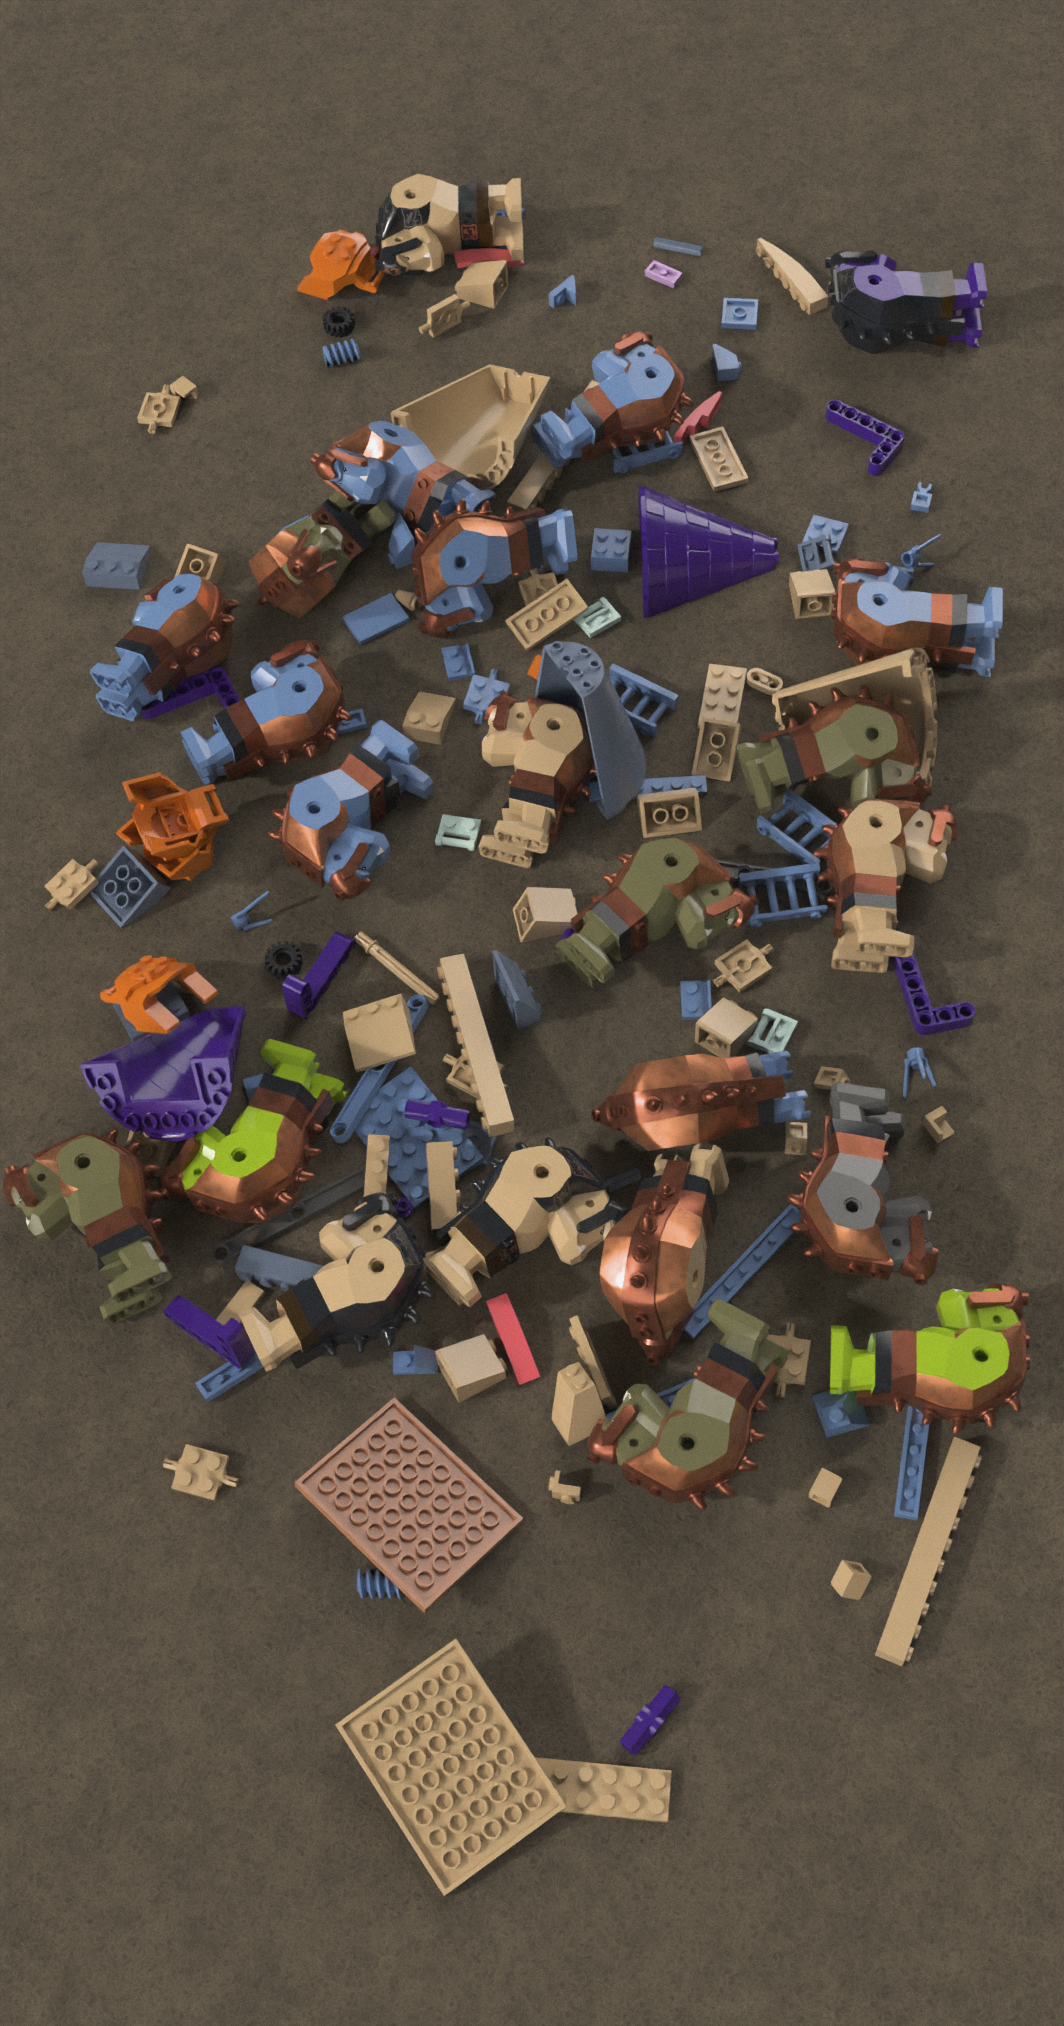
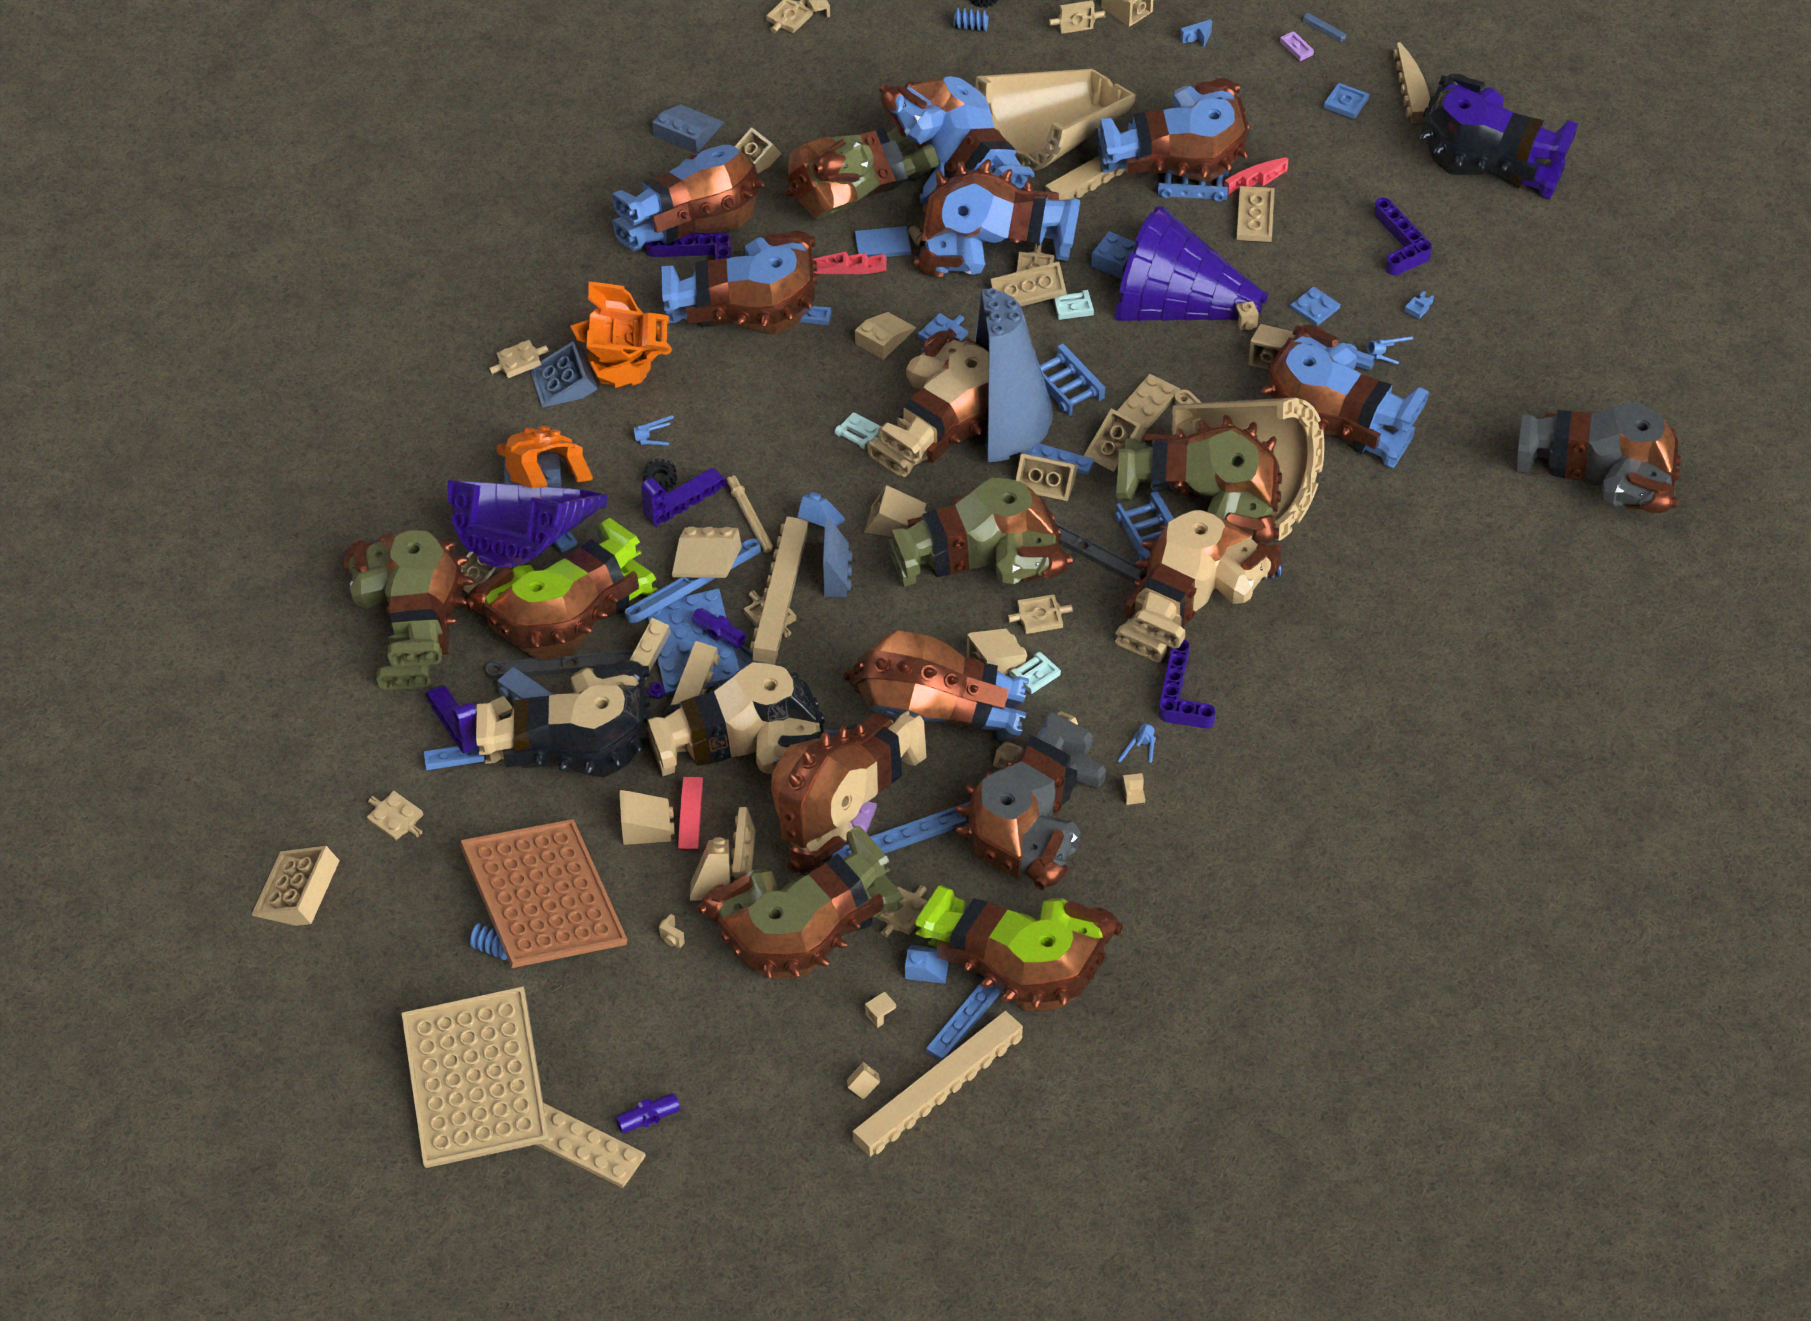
camera: 20 degrees right, 10 degrees down
(135, 1606) = (296, 885): none -> tan slope
(332, 814) = (760, 374): piece -> none
(361, 652) = (855, 264): none -> coral slope
(415, 1362) = (605, 802): medium blue slope -> none
(458, 662) = (933, 299): medium blue plate -> none
(471, 940) = (816, 509): none -> medium blue slope
(695, 999) = (985, 621): medium blue plate -> none
(725, 364) = (1307, 138): medium blue slope -> none
(772, 568) = (1247, 315): none -> tan bracket
(789, 876) = (1098, 553): medium blue fence -> none
(810, 554) = (1290, 315): sand blue plate -> none

